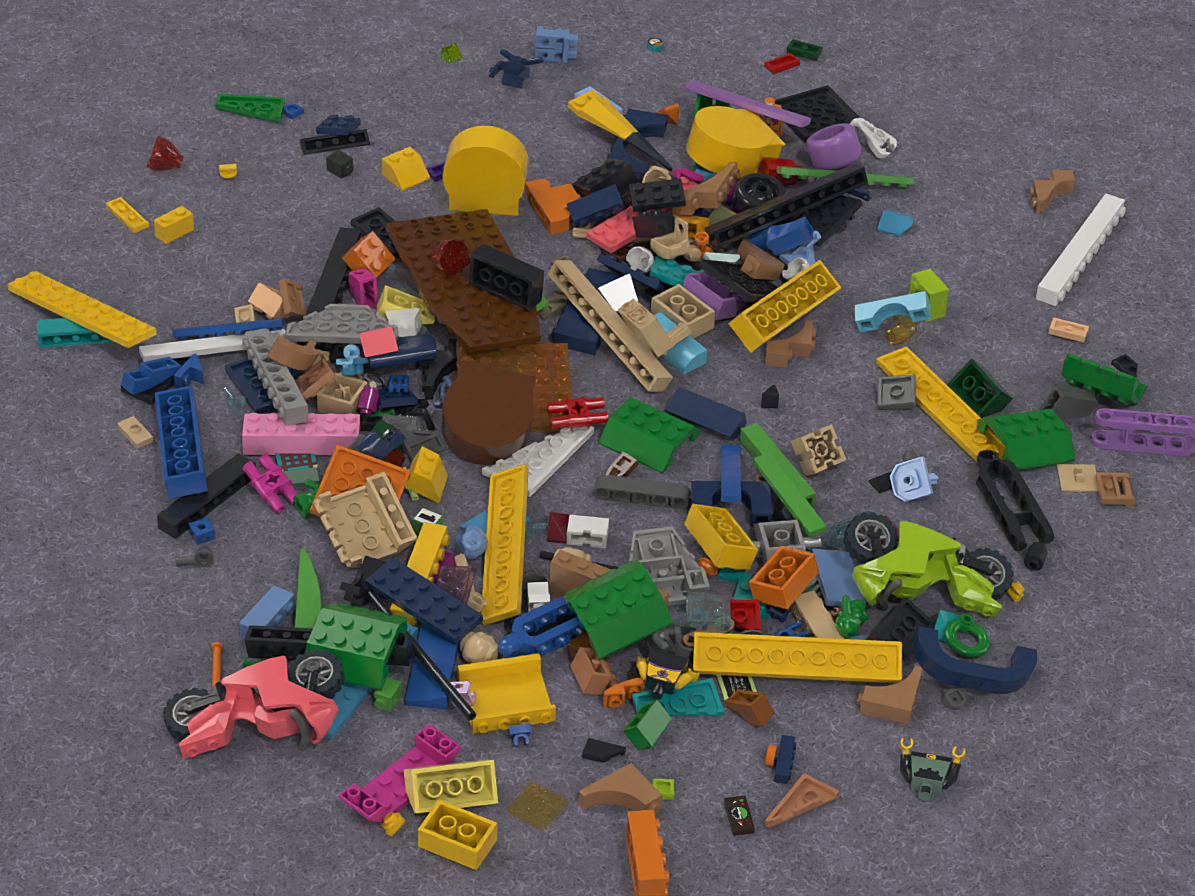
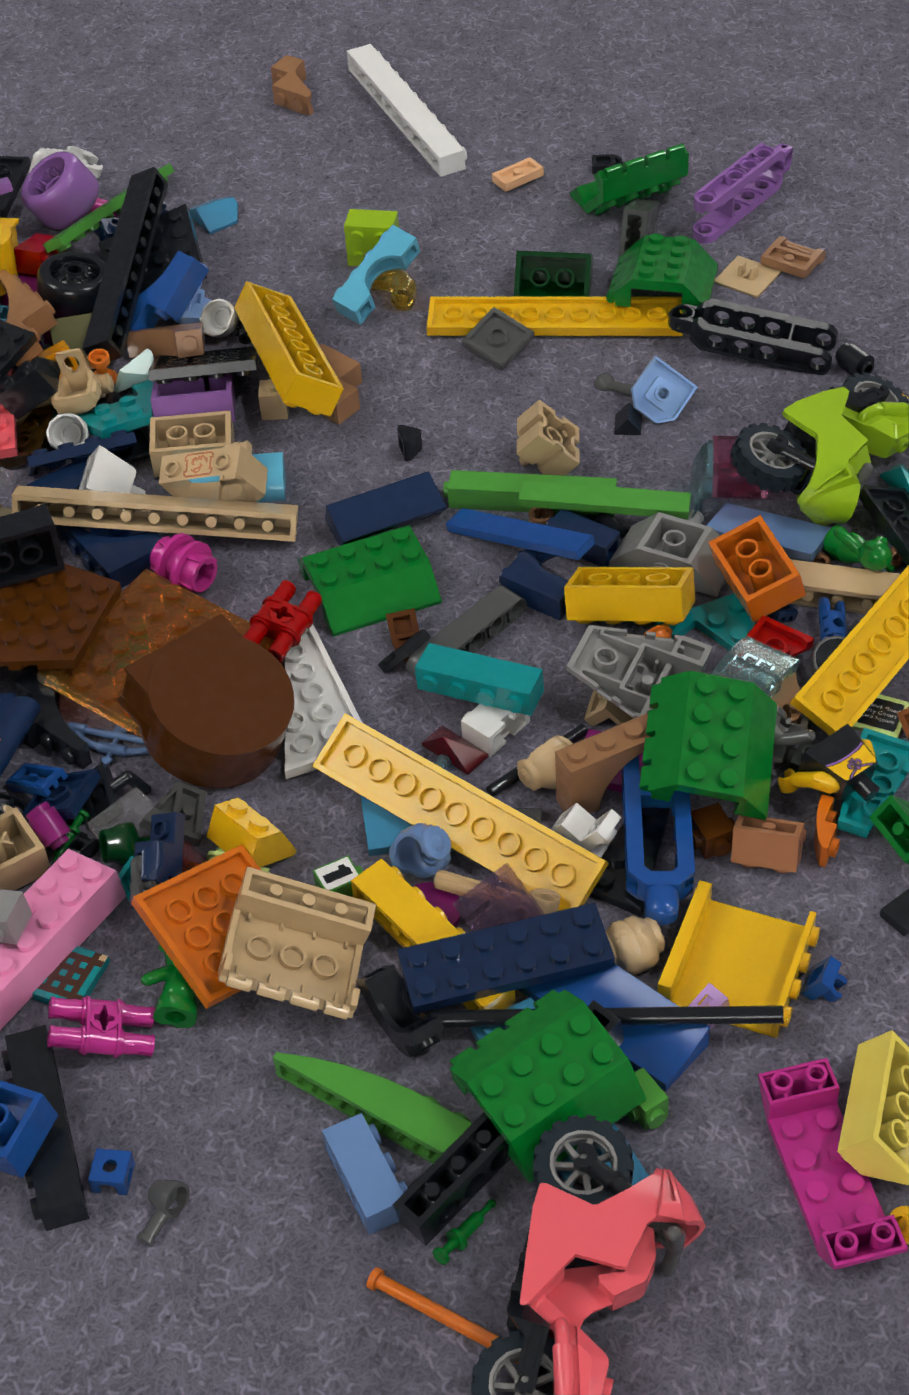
camera: 50 degrees left, 5 degrees up
(300, 475) = (112, 981): sand green tile -> none
(586, 356) = (184, 562): none -> dark pink piece
(598, 505) = (479, 679): none -> teal brick
(605, 470) = (404, 650): none -> black tile

